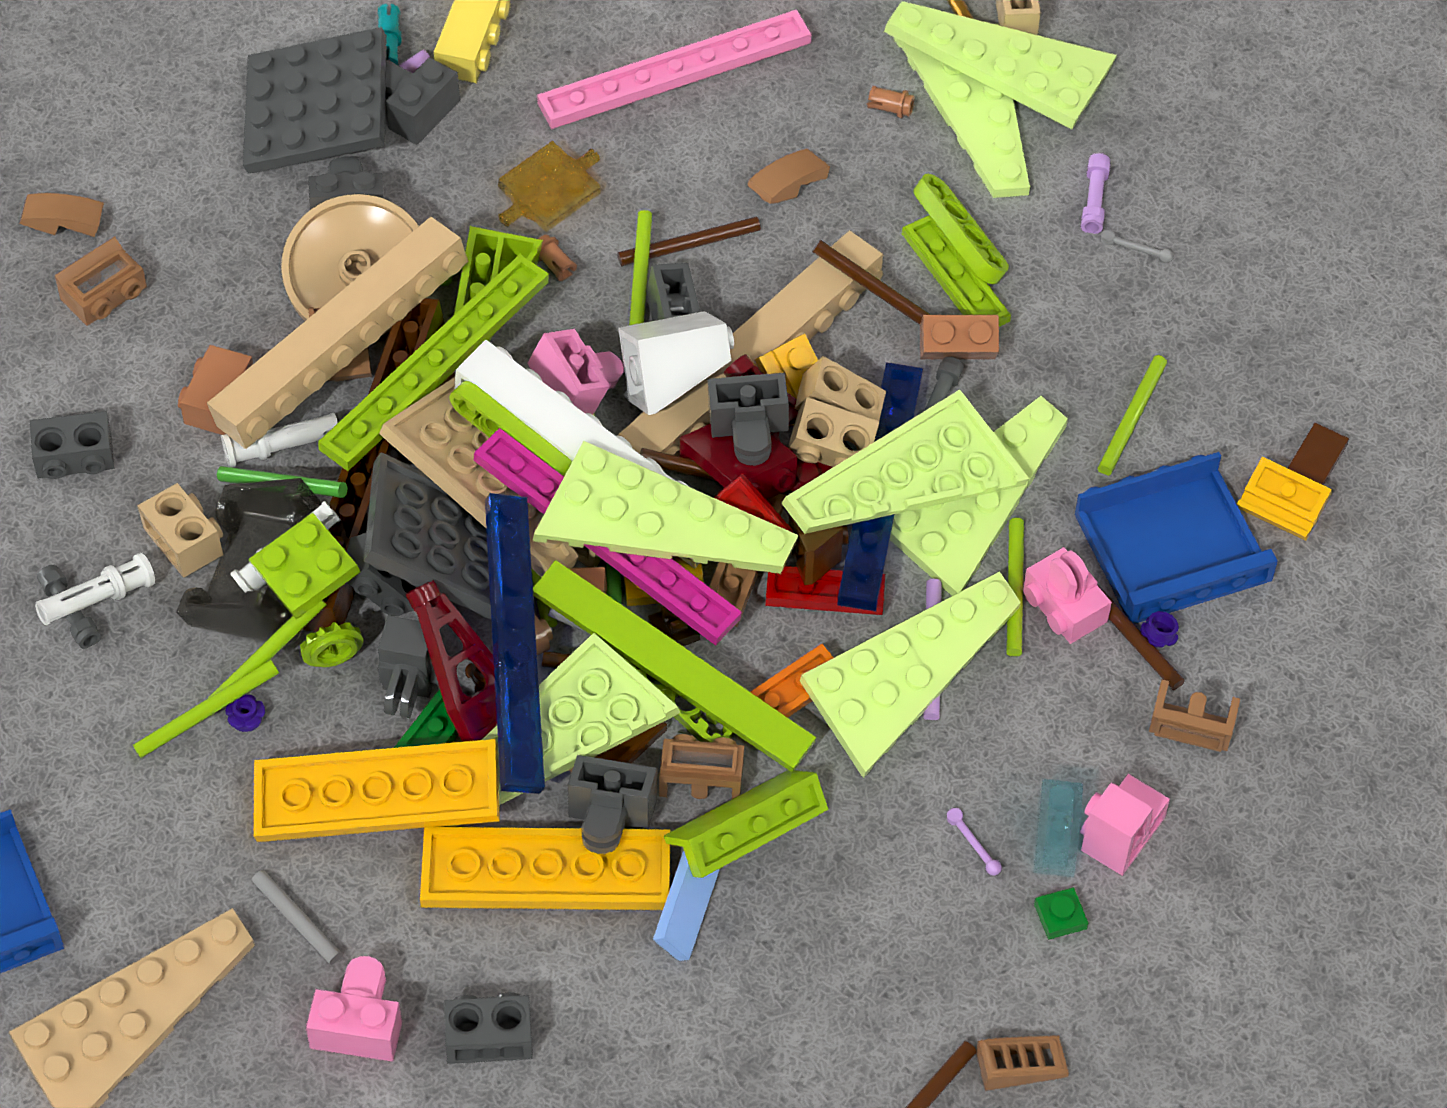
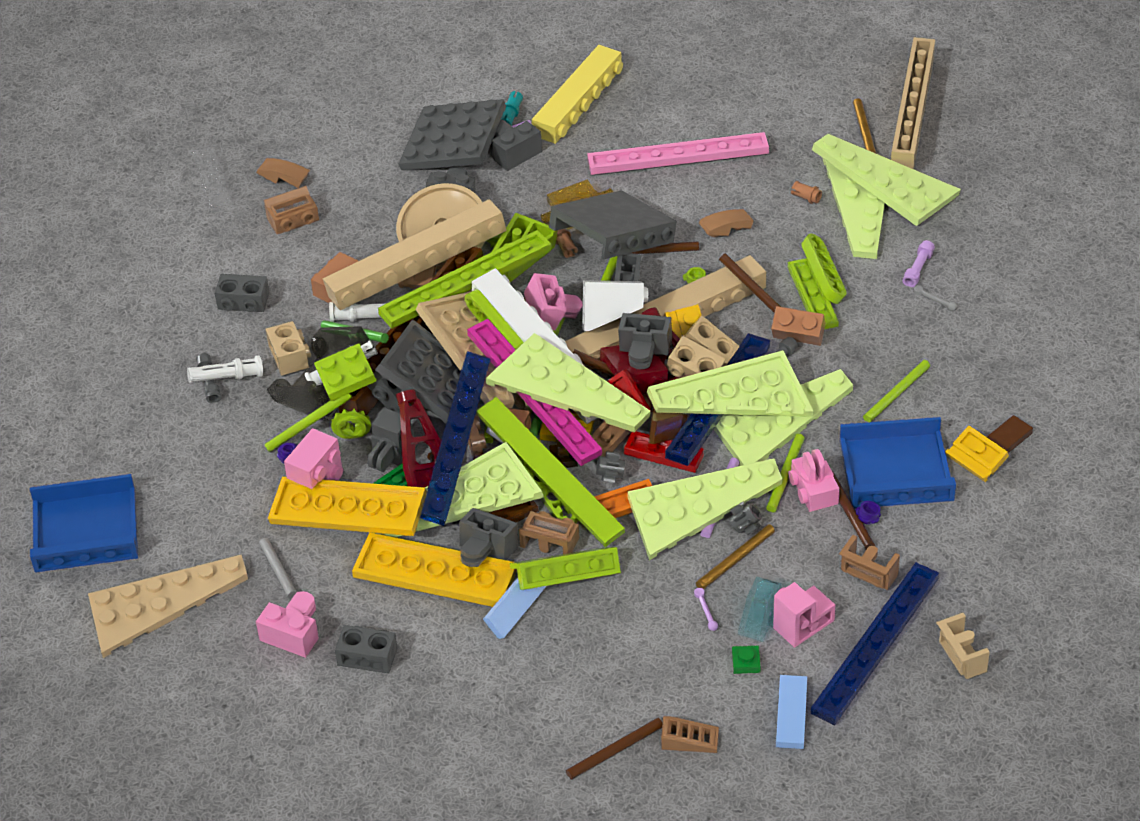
camera: 20 degrees right, 10 degrees down
(205, 709) = (264, 445): lime bar -> none
(302, 725) = (314, 460): none -> bright pink brick
(630, 214) = (616, 222): none -> dark grey panel
(756, 635) = (610, 467): none -> dark grey gear
(769, 273) = (694, 274): none -> lime plate
(986, 679) = (745, 518): none -> dark grey gear
(988, 745) = (736, 556): none -> pearl gold bar
(1155, 985) = (791, 712): none -> light blue tile
(1239, 847) = (874, 644): none -> clear blue plate
(1366, 829) = (959, 649): none -> tan window

